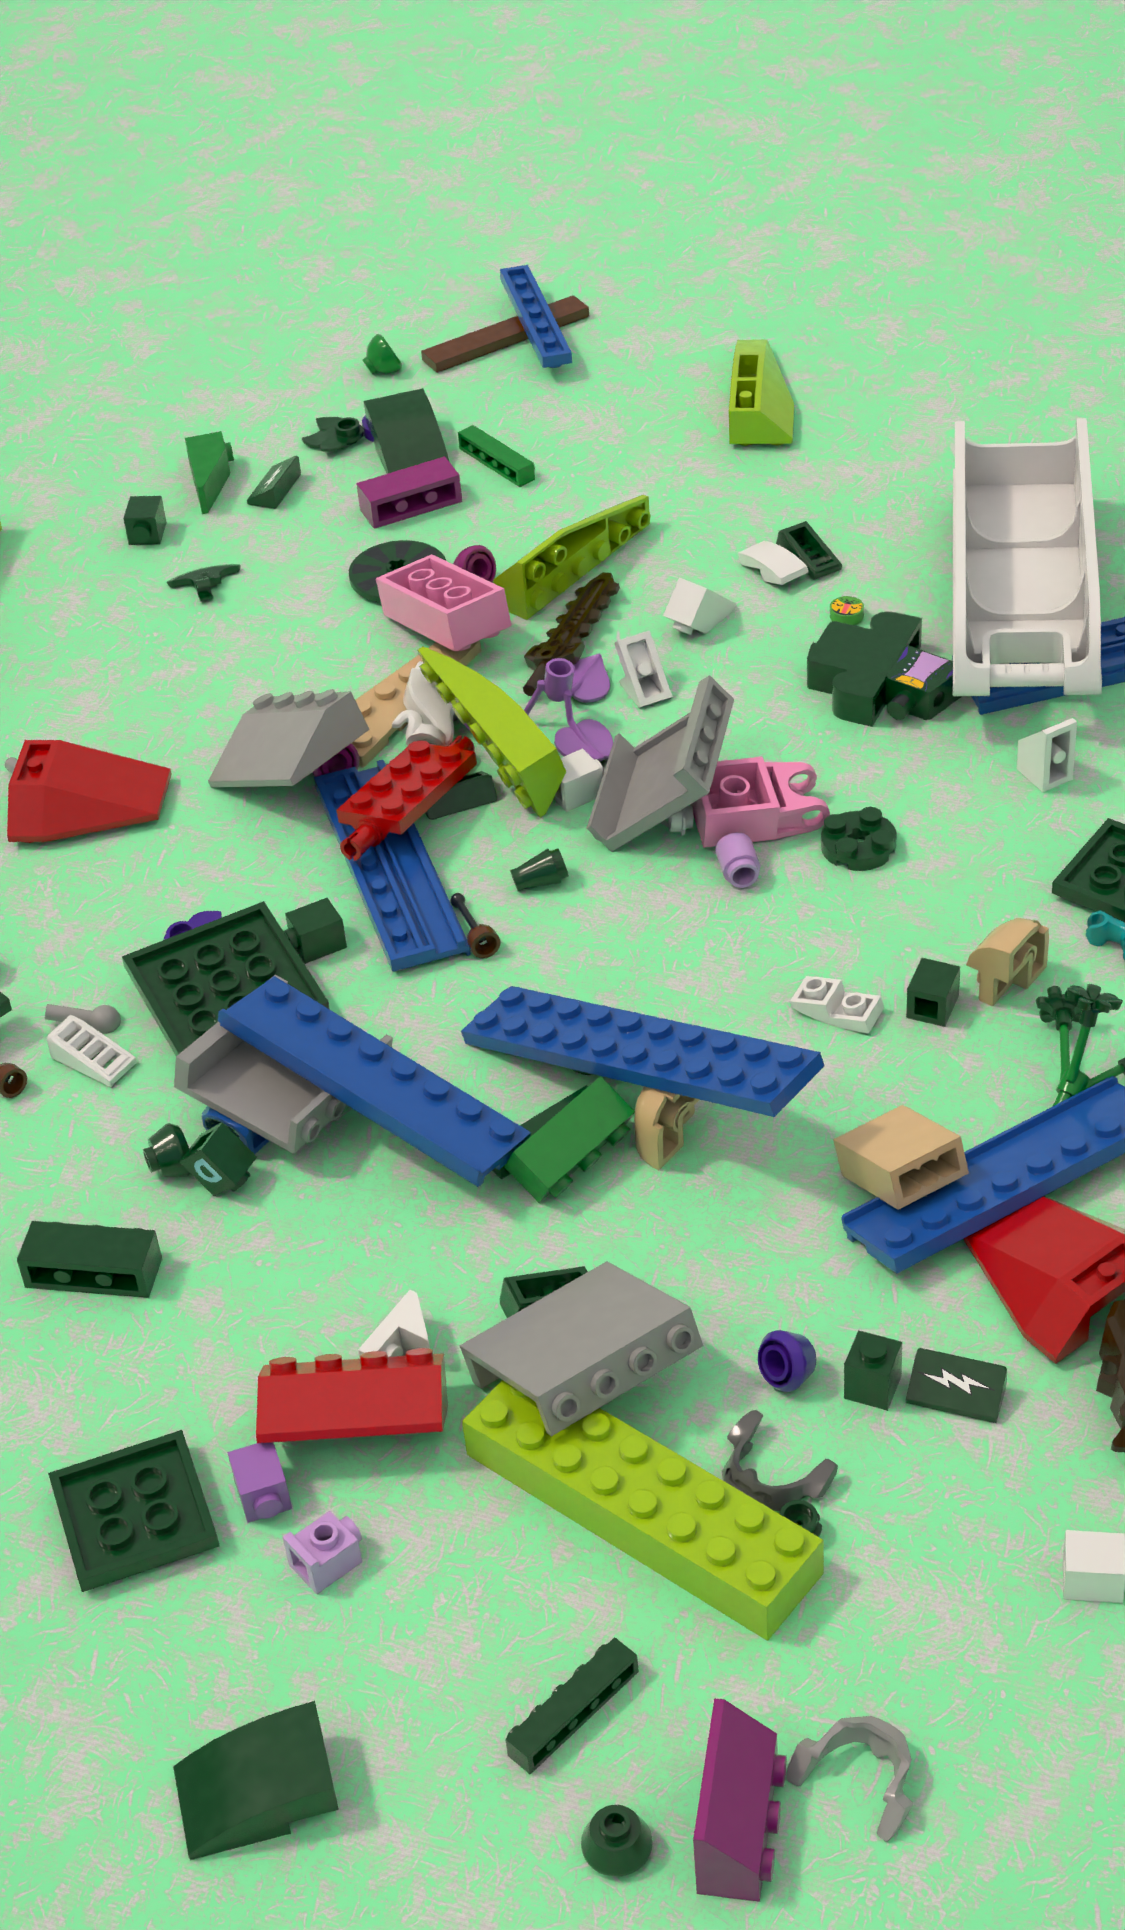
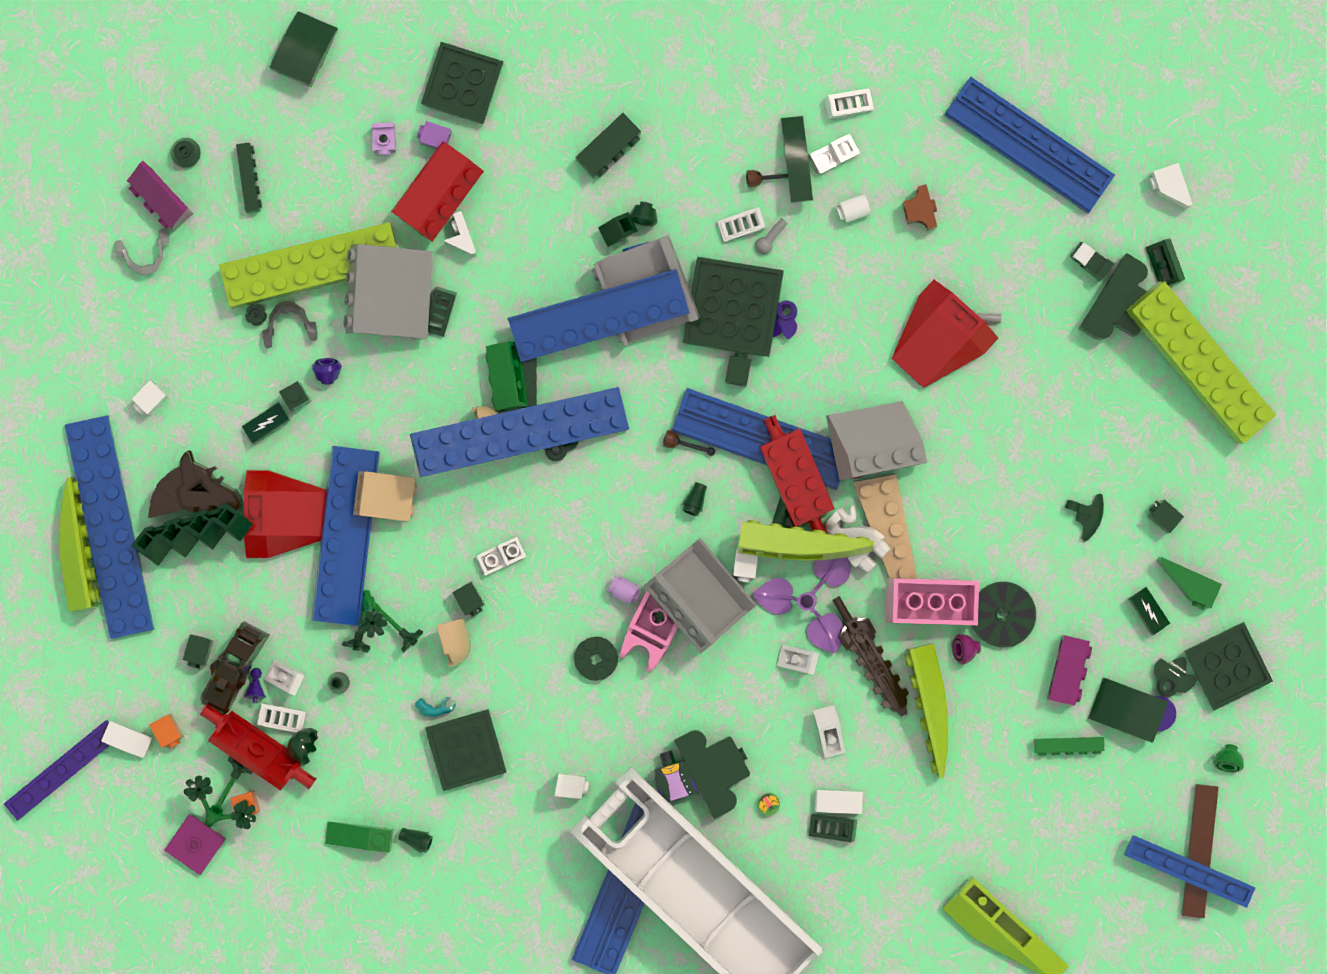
camera: 120 degrees right, 45 degrees up
(277, 406) = (1228, 666): none -> dark green plate

